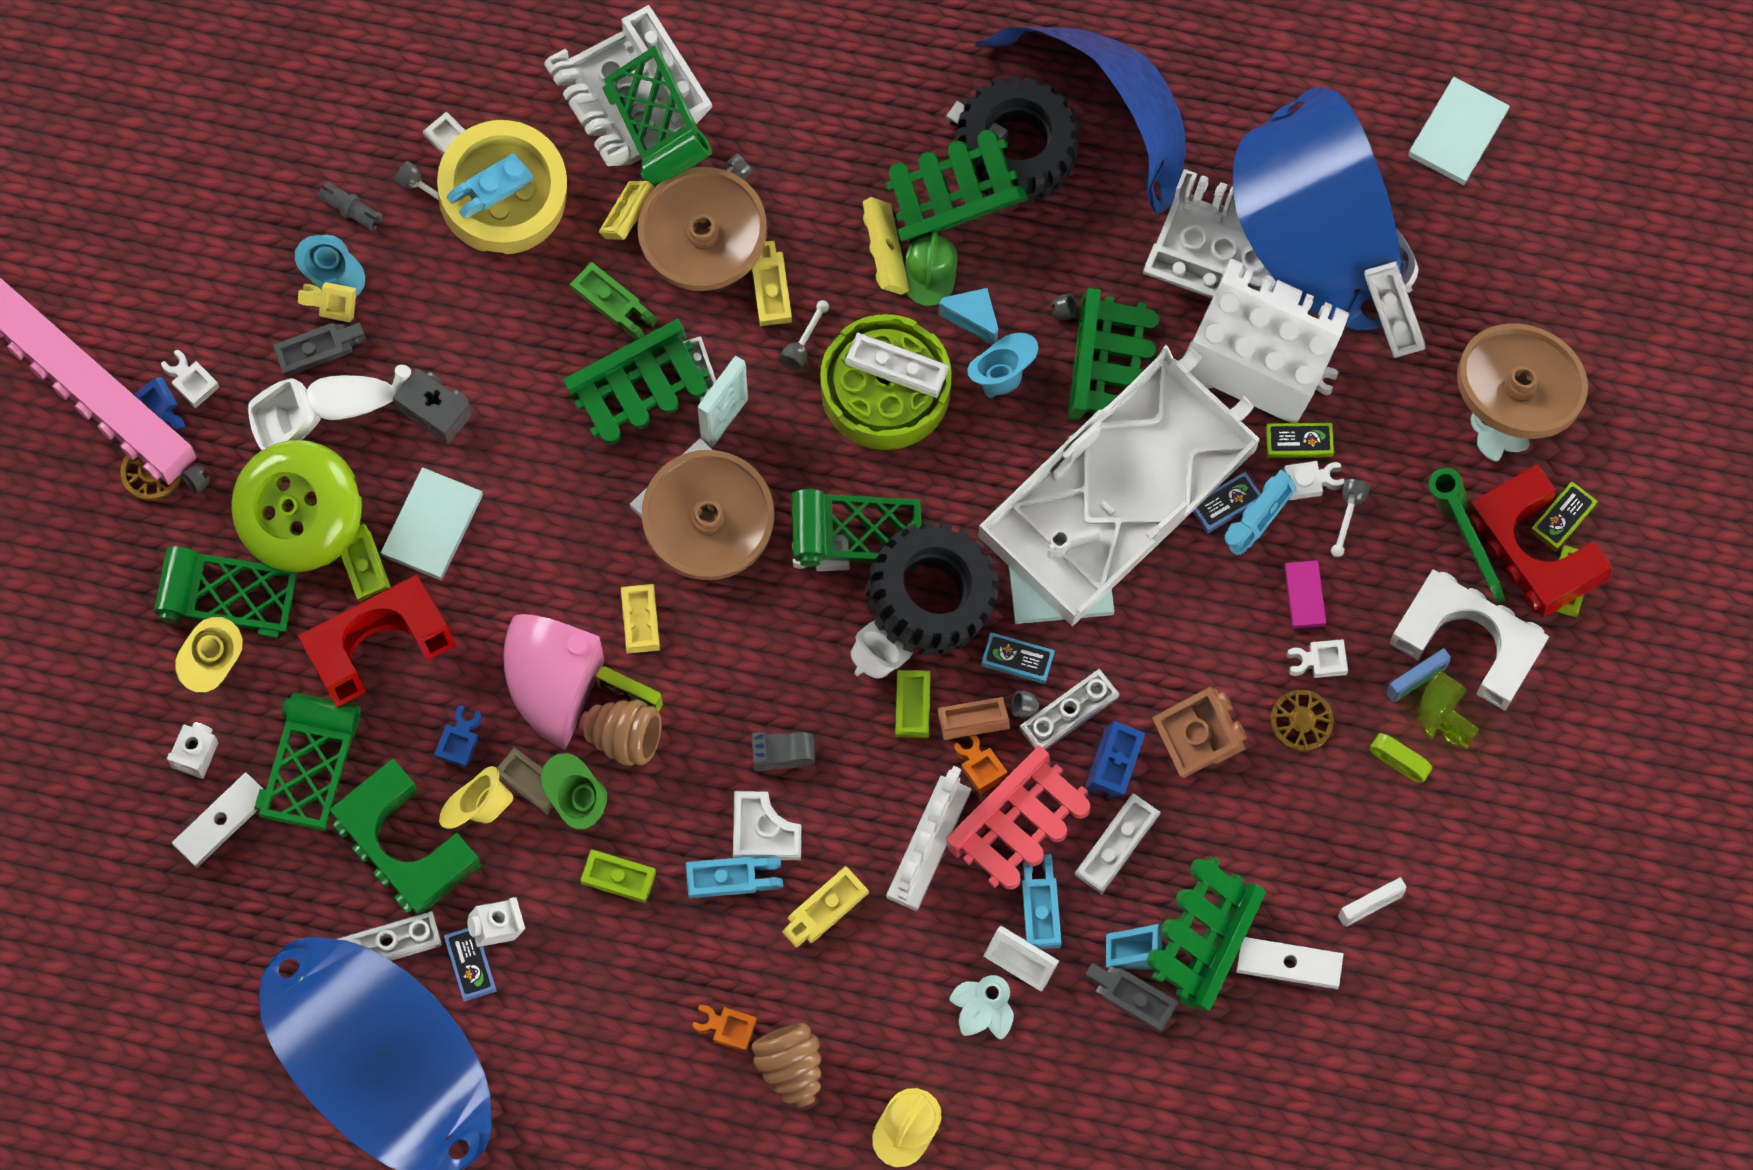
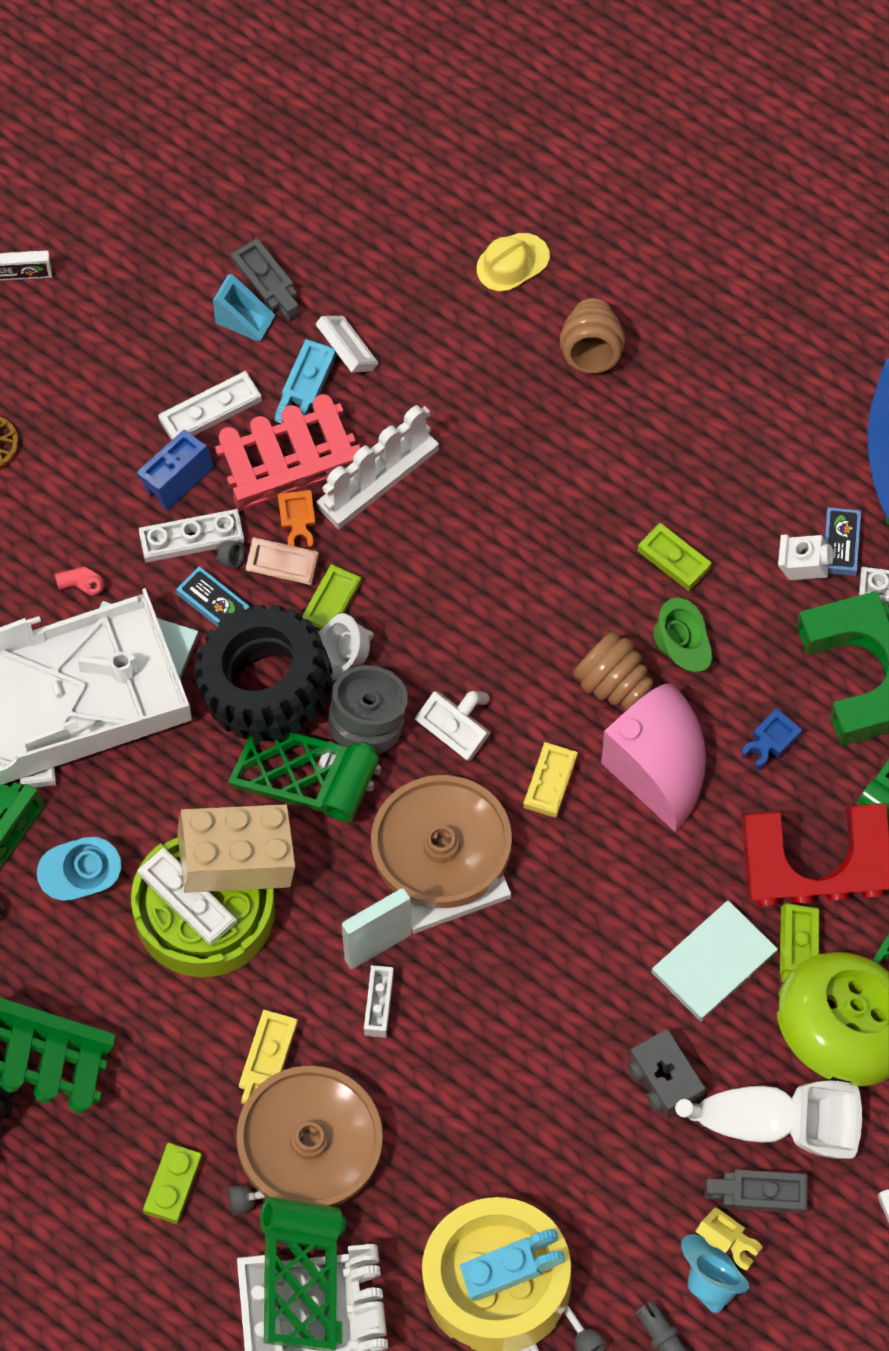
camera: 155 degrees left, 5 degrees down
(478, 800) = (782, 671): light yellow piece -> none
(525, 779) = (723, 682): dark tan tile -> none
(611, 299) = (436, 1113): bright green hinge -> none
(613, 370) = (432, 1032): green fence -> none
(626, 210) = (376, 1201): light yellow plate -> none
(628, 688) = (586, 710): lime tile -> none
(730, 876) = (570, 515): medium azure hinge -> none
(730, 1029) = (632, 391): orange plate -> none
(745, 630) = (453, 722): none -> white plate
(761, 831) = (525, 547): white tile -> none
(782, 750) = (473, 603): dark grey leg -> none
(795, 354) = (276, 976): dark grey hinge -> none
(799, 161) = (172, 1183): none -> lime plate
(809, 588) = (367, 708): none -> dark grey wheel
(825, 907) = (499, 455): light yellow hinge -> none
(873, 410) = (235, 848): none -> tan brick
(885, 246) = (132, 1046): light yellow tile -> none
(931, 269) = (102, 1003): bright green piece -> none
(972, 313) = (80, 939): medium azure slope -> none
(981, 1011) = (398, 323): light aqua plate -> none
(1142, 627) = (81, 578): none -> coral arm
(1200, 731) = (84, 461): nougat plate -> none
(1218, 947) = (173, 285): green fence -> none
(1311, 965) = (102, 242): white tile -> none

